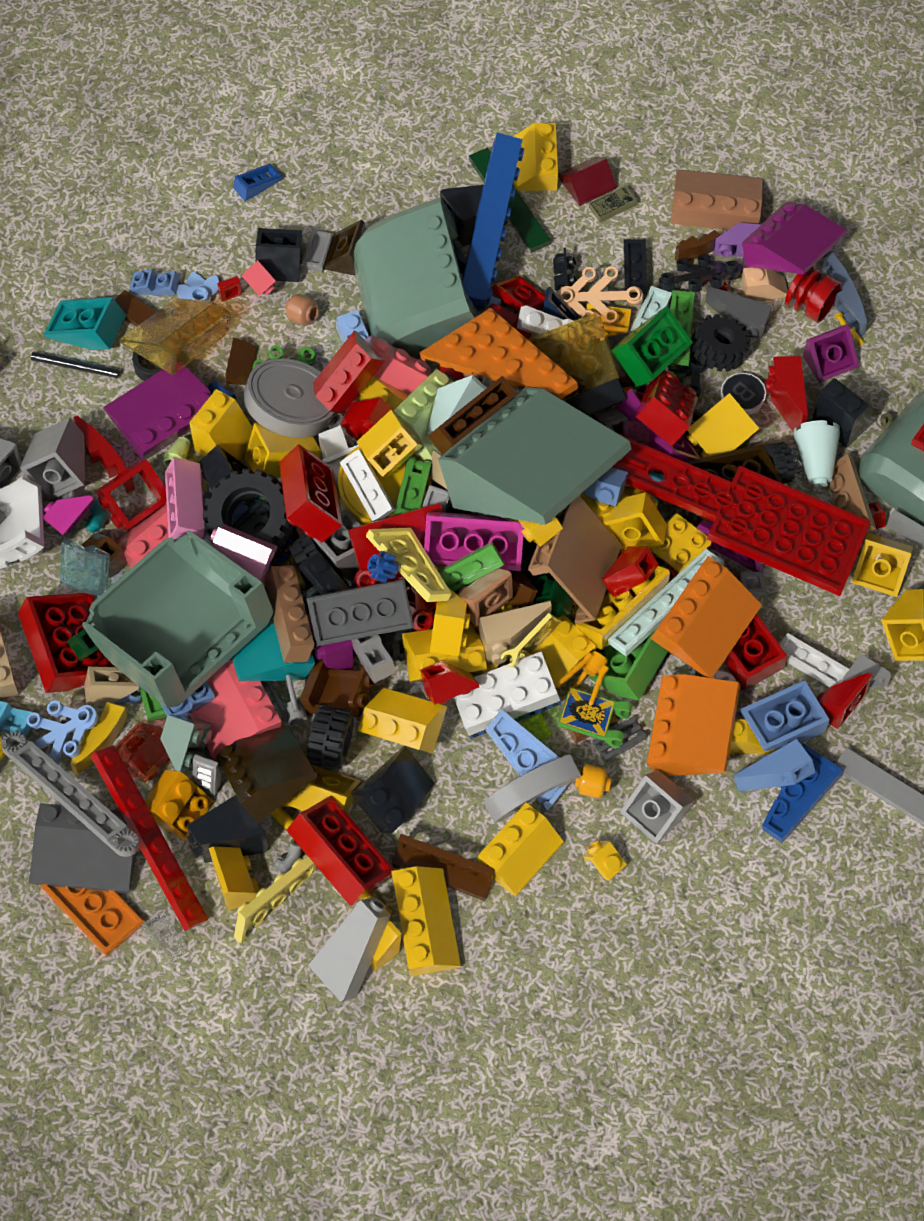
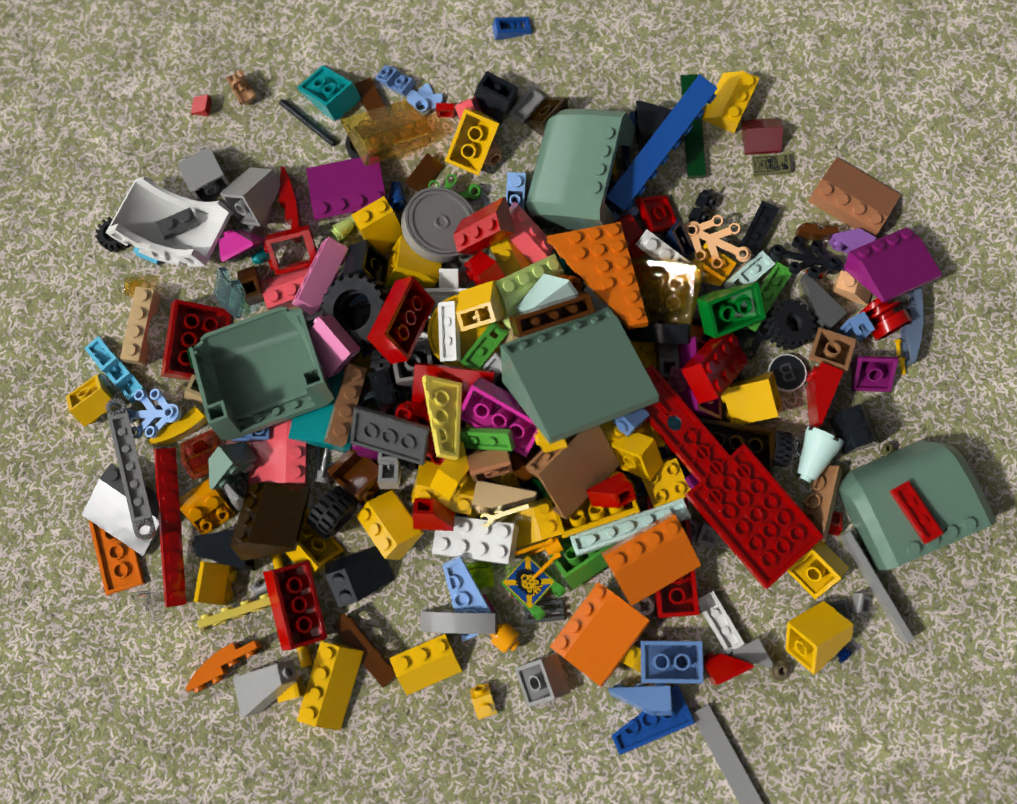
camera: 35 degrees right, 15 degrees up
(280, 967) = (215, 667): none -> orange slope
(281, 302) = (472, 141): none -> yellow slope
(383, 566) = (417, 412): blue gear -> none
(775, 343) = (832, 349): none -> medium nougat slope
(790, 315) = (858, 325): none -> medium blue hinge
(900, 680) = (774, 671): none -> dark tan plate

